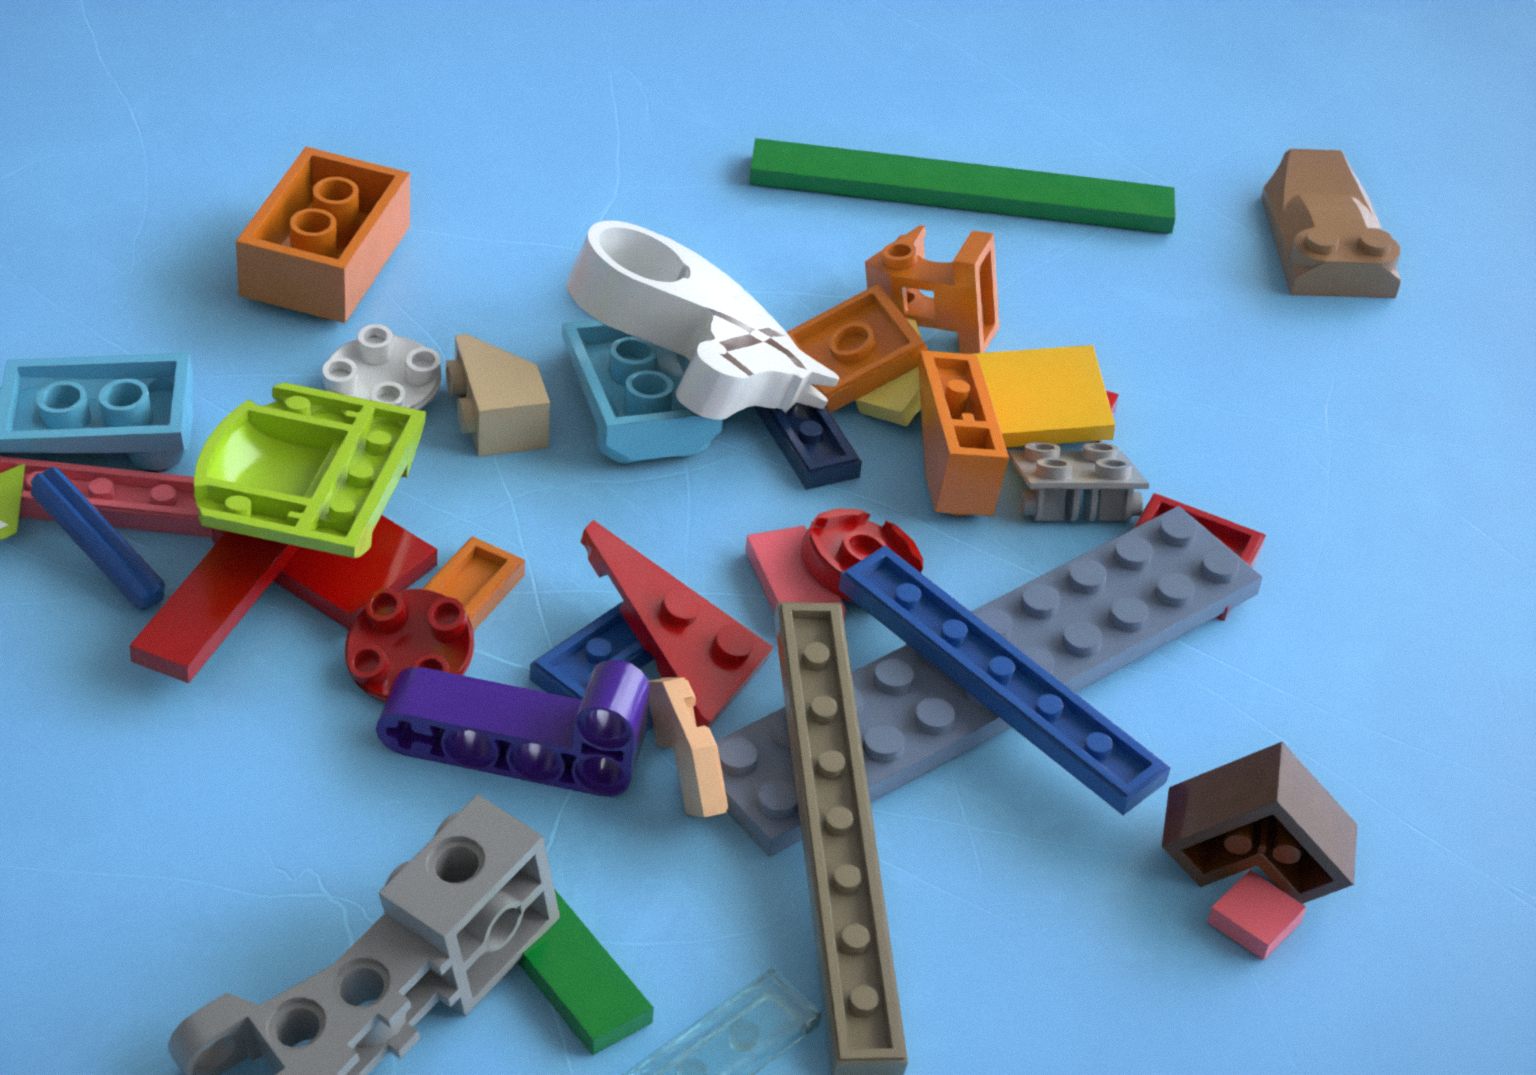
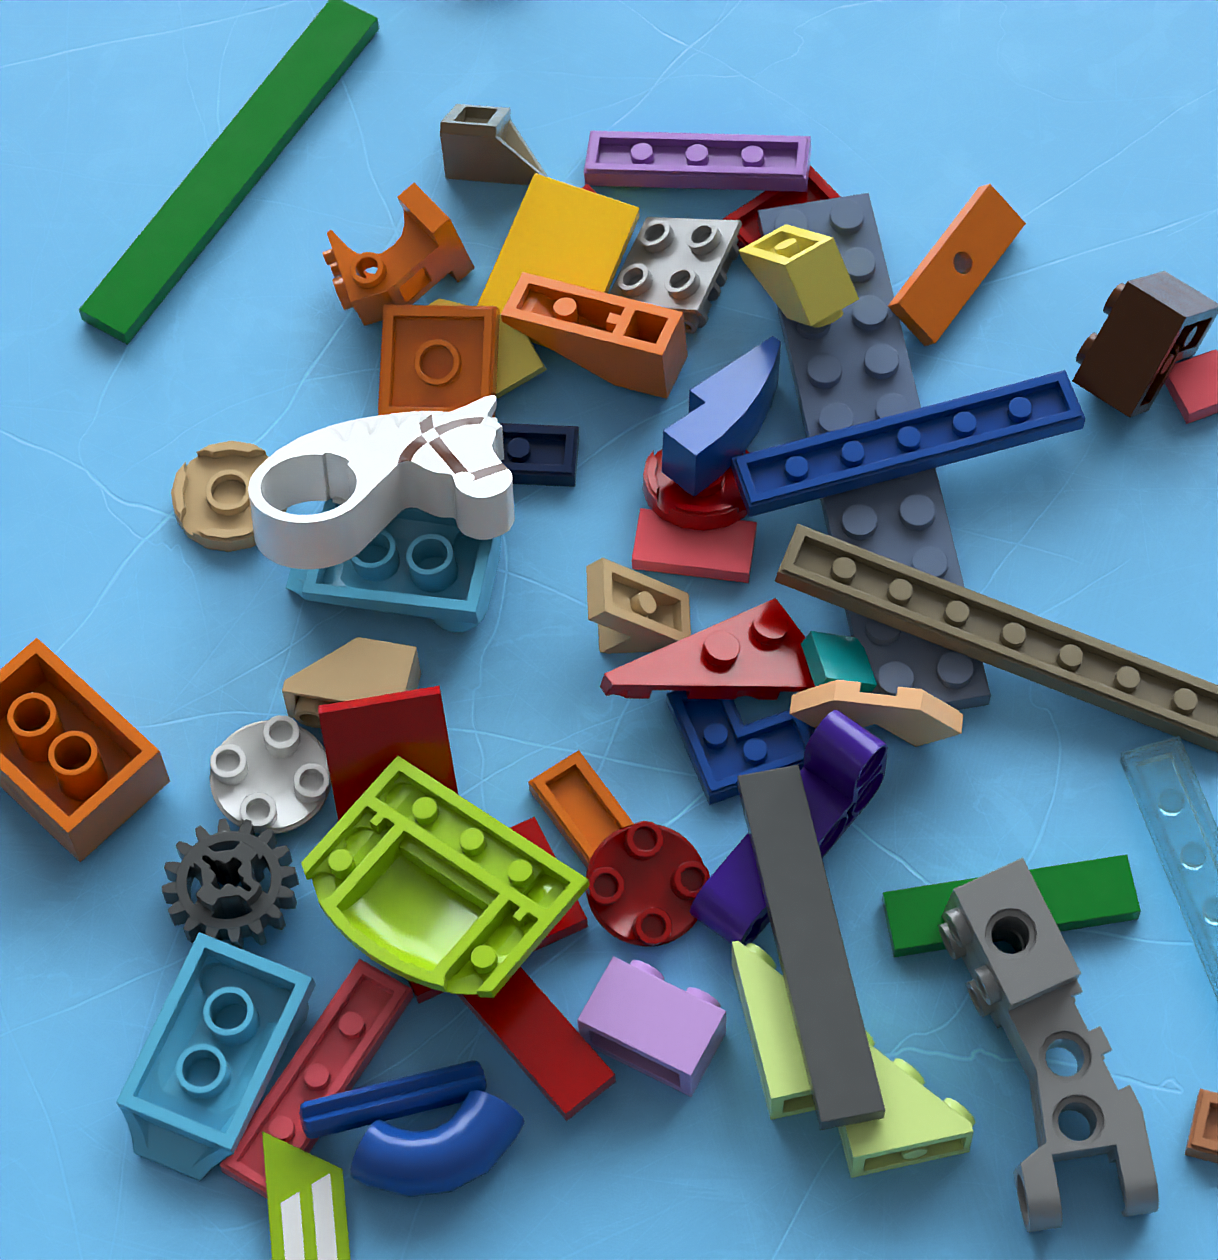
camera: 55 degrees left, 20 degrees up
(53, 586) = (440, 1157): none -> blue cylinder
(250, 367) = (228, 859): none -> dark grey gear
(259, 690) = (653, 1024): none -> lavender piece
(274, 829) = (915, 1120): none -> yellowish green slope
(380, 752) = (810, 948): none -> dark grey tile
(456, 423) = (372, 731): none -> red tile
(693, 538) = (634, 609): none -> tan slope
(727, 704) = (837, 658): none -> teal tile
(937, 537) = (721, 418): none -> blue slope
(1103, 315) = (485, 146): none -> dark tan slope
(1113, 532) = (802, 274): none -> light yellow slope
(1204, 459) = (698, 161): none -> medium lavender tile
(1276, 670) = (956, 265): none -> orange tile

